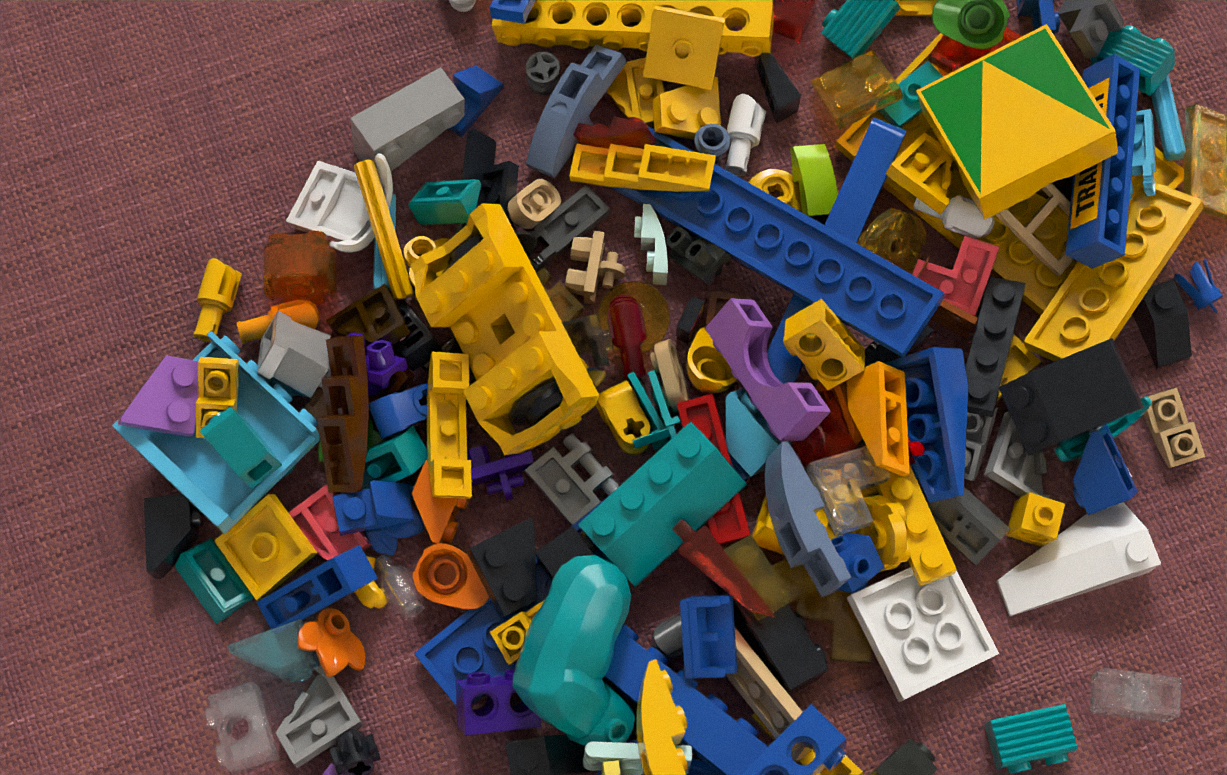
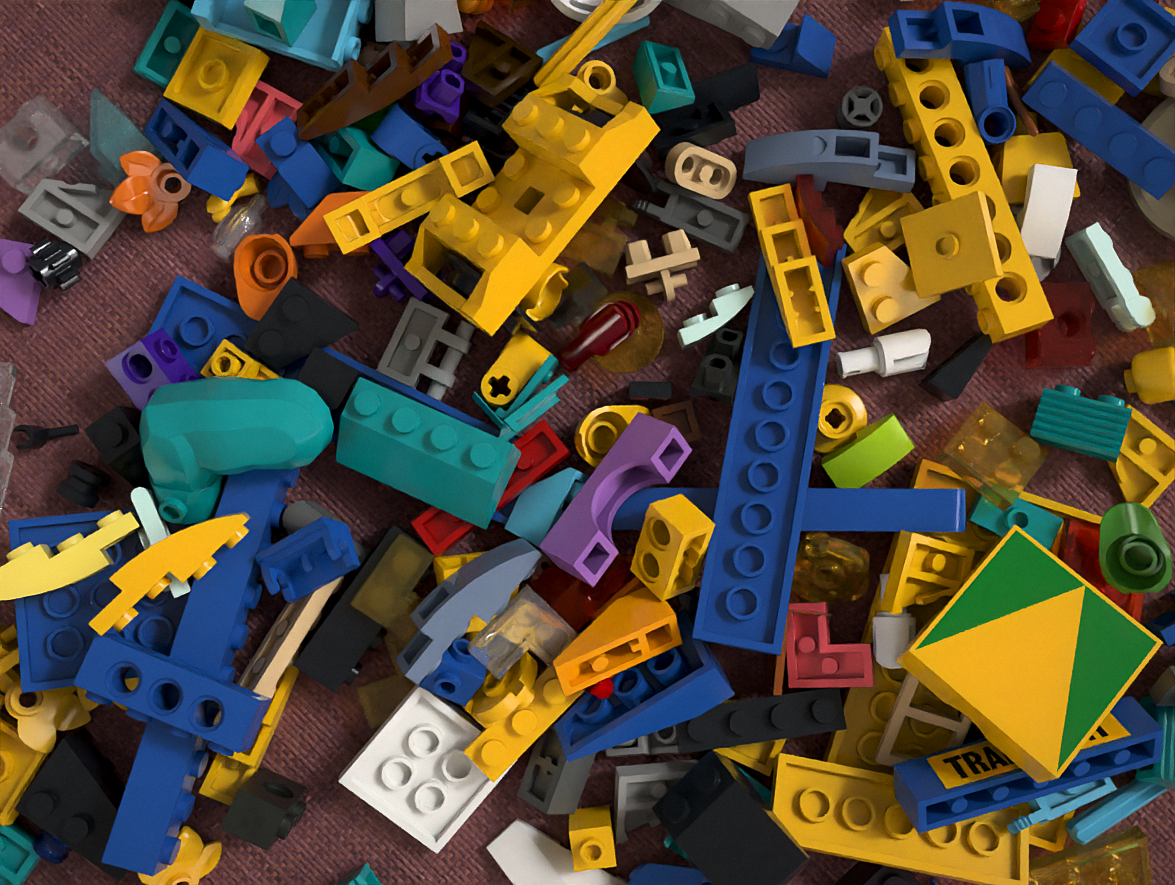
camera: 65 degrees right, 15 degrees up
(668, 364) = (570, 407): tan plate -> none
(711, 559) = (384, 529): clear red bar -> none
(712, 140) = (864, 323): sand blue cone -> none

